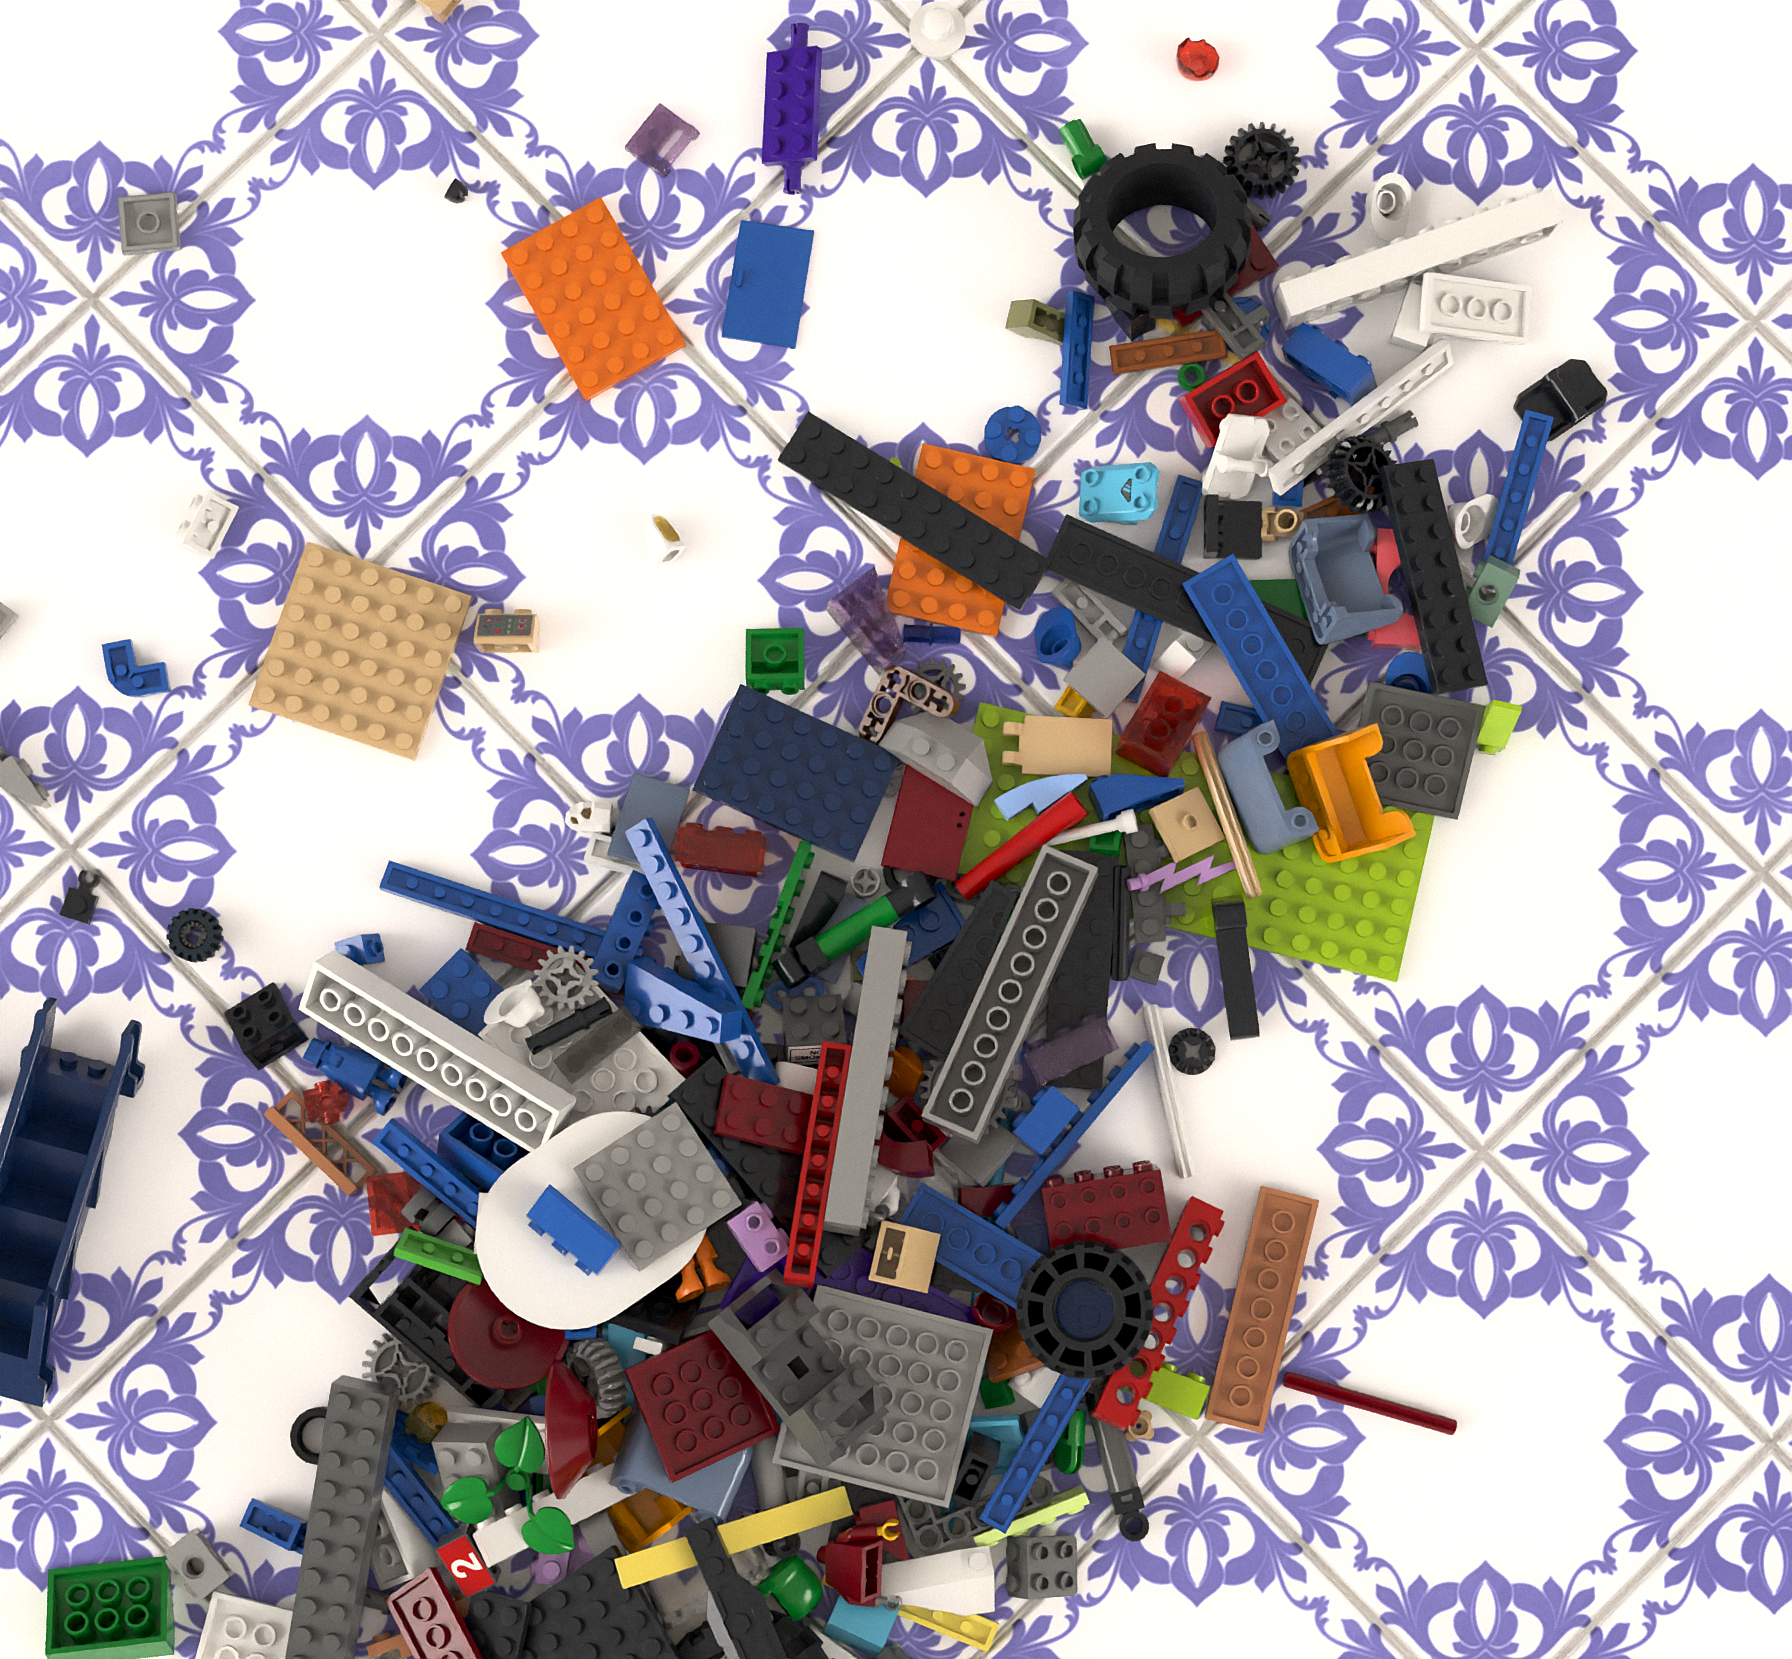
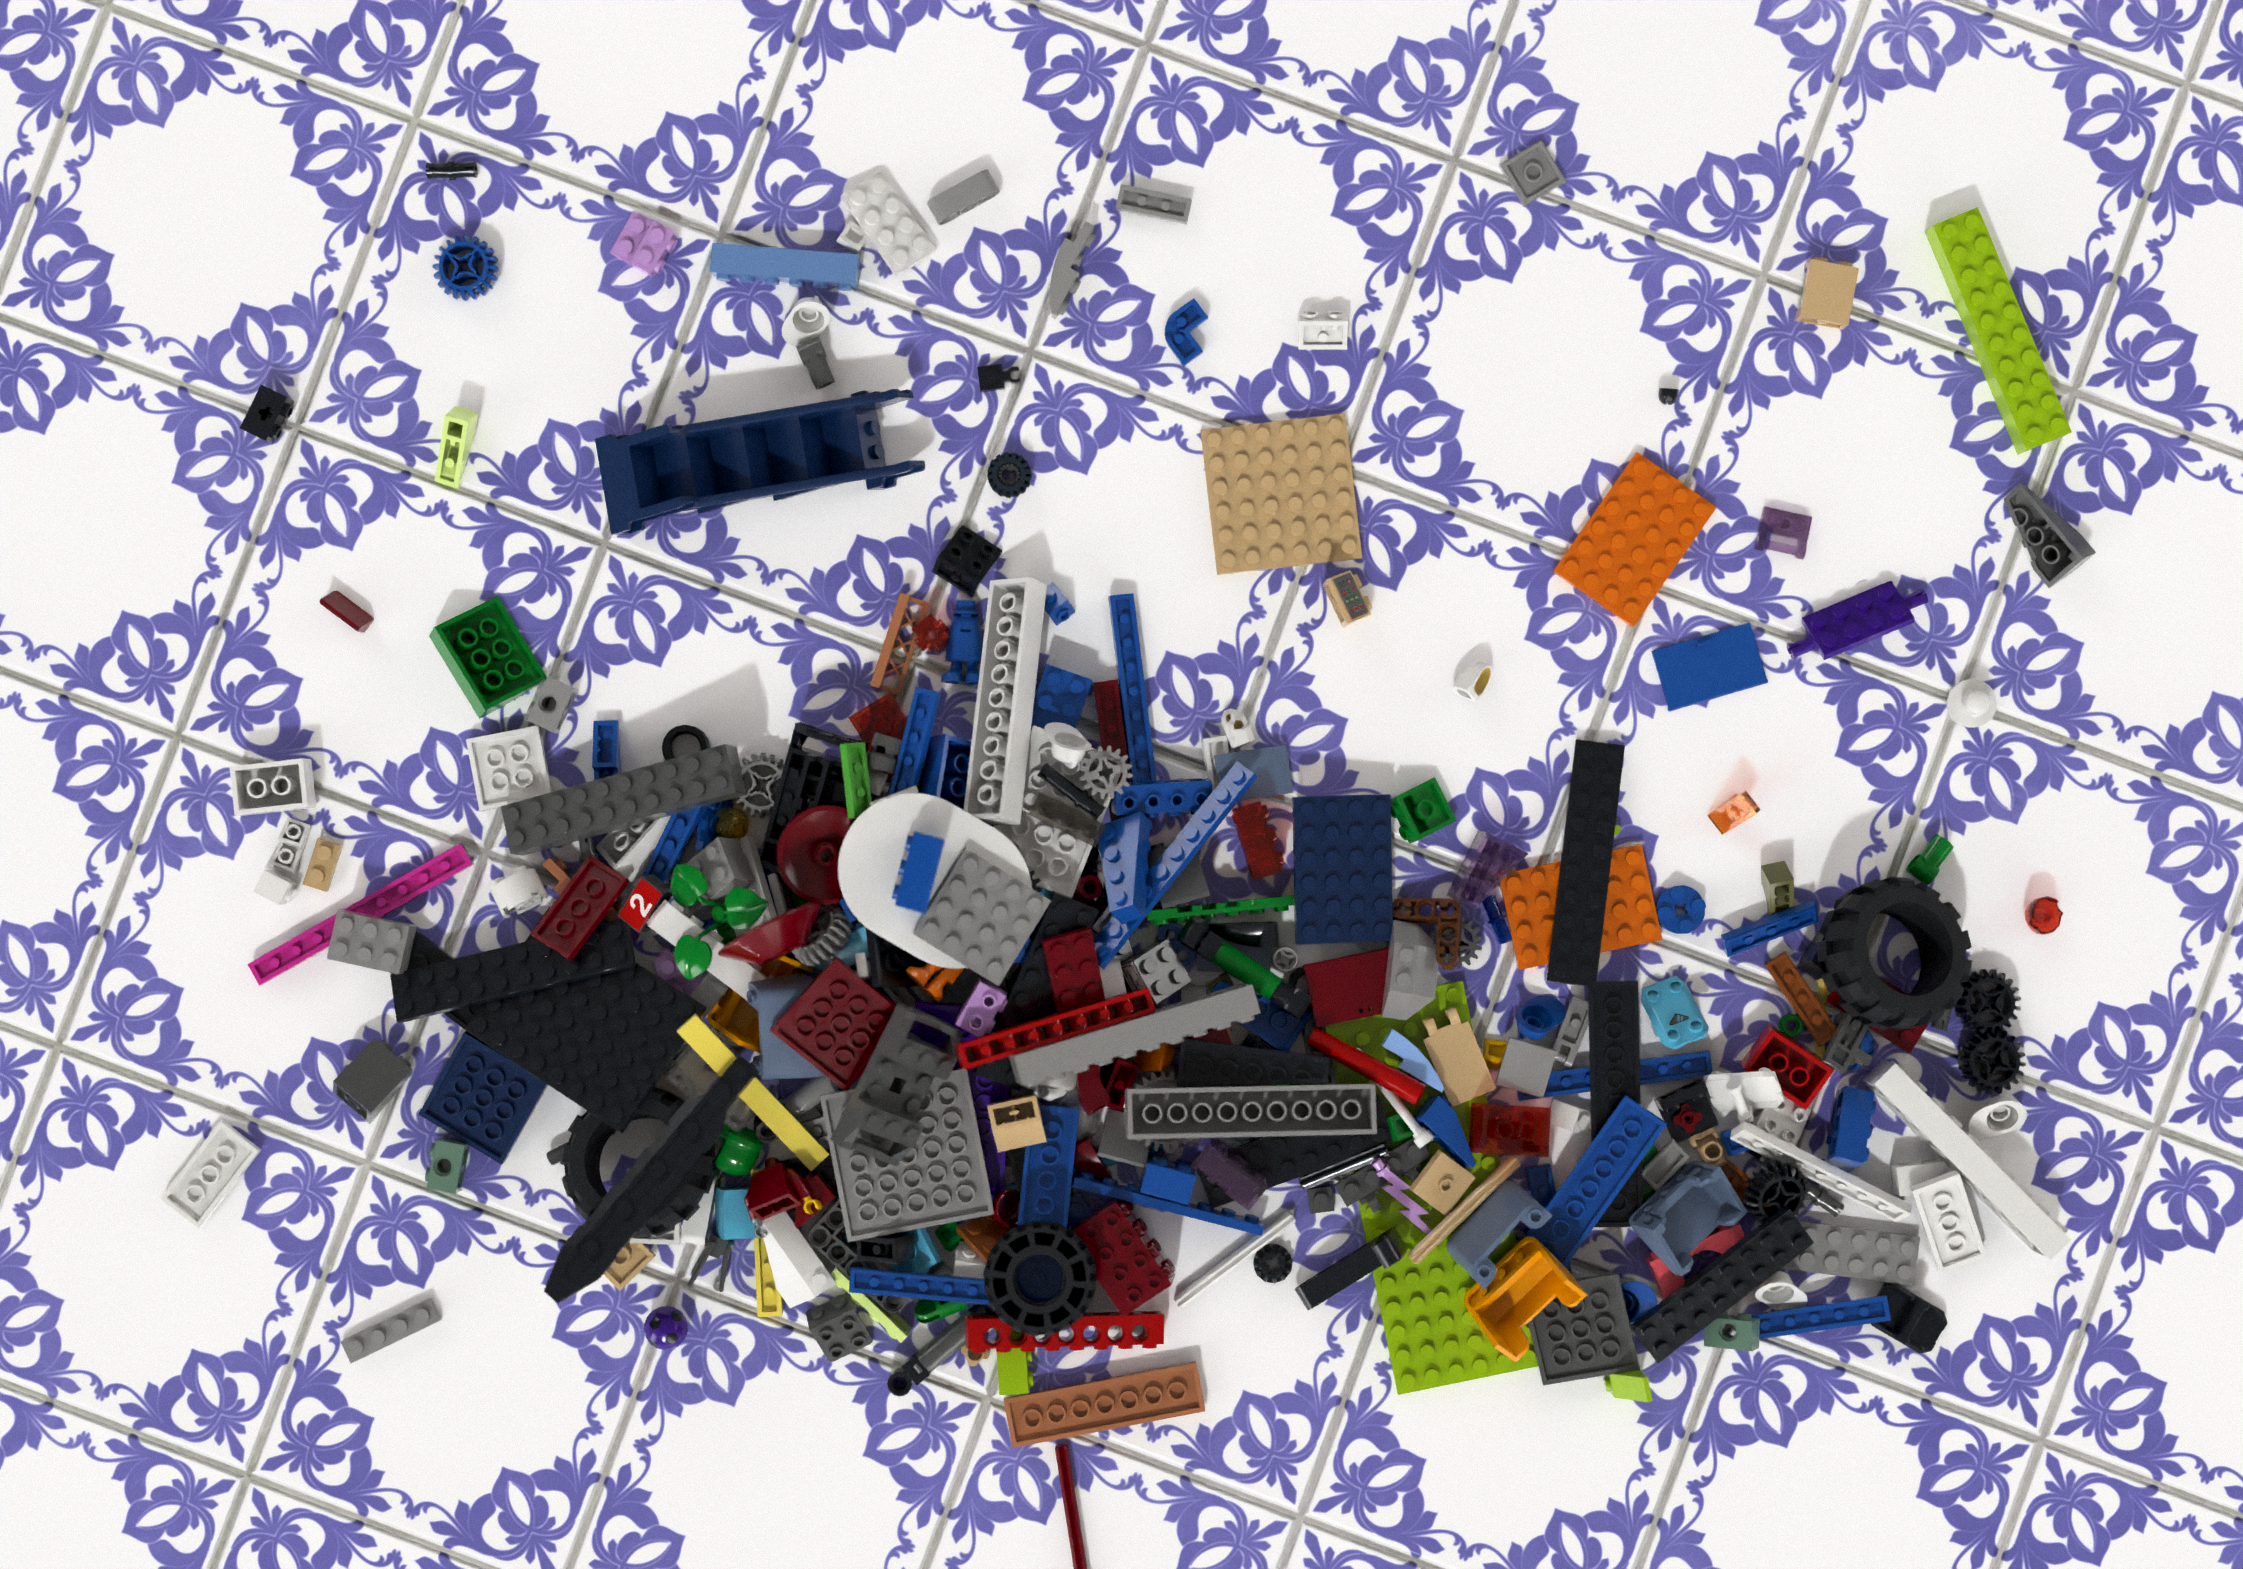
camera: 70 degrees right, 5 degrees up
(524, 1402) = (780, 893): none -> light grey tile
(934, 329) = (1733, 812): none -> clear orange slope
(1231, 530) = (1686, 1110): none -> dark red plate
(1278, 579) = (1664, 1164): none -> light grey tile
(1334, 195) = (1987, 1069): none -> black gear
(1469, 419) = (1859, 1253): none -> light grey plate

